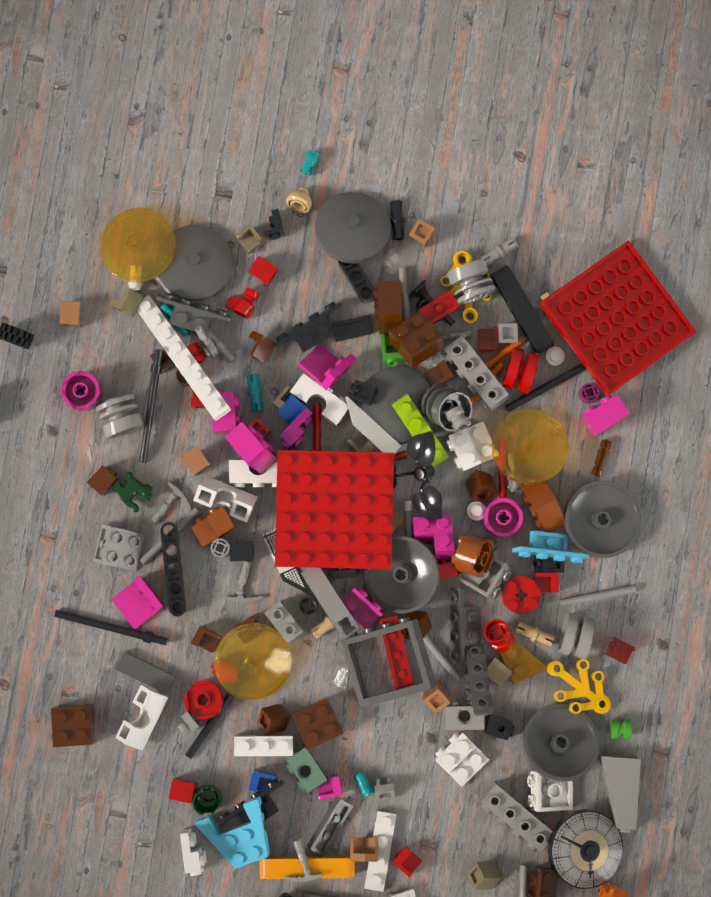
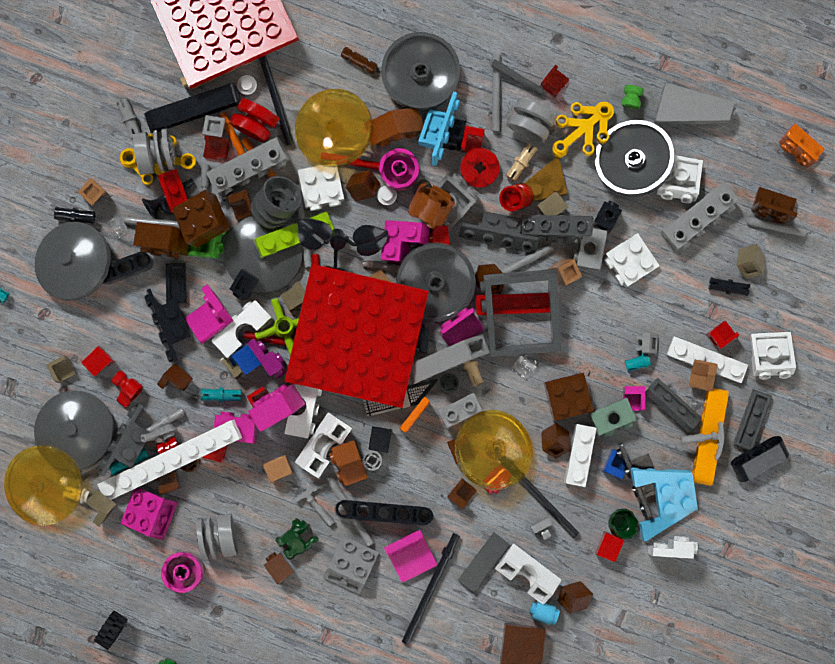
camera: 85 degrees left, 0 degrees up
(70, 314) = (100, 568): medium nougat panel -> none
(107, 741) = (544, 613): none -> medium azure brick
(128, 766) = (575, 597): none -> reddish brown panel
(130, 348) = (149, 513): none -> dark pink bracket
(156, 369) = (176, 490): black bar -> none
(214, 703) = (514, 514): red plate -> none
(243, 581) = (410, 444): light grey piece -> none
(270, 579) = (415, 415): none -> orange tile
(275, 221) = (50, 338): black bracket -> none
(299, 201) = (33, 310): tan brick -> none
(325, 430) = (275, 330): none -> lime bar
(371, 429) = (282, 283): white sticker -> none
(455, 859) = (729, 286): none -> black pin
(458, 419) = (290, 192): light grey wheel -> none
(585, 393) = (291, 62): magenta wheel -> none
(585, 849) = (743, 155): dish -> none
(604, 416) = (317, 45): dark pink brick -> none
(616, 614) = (517, 77): none -> dark grey bar

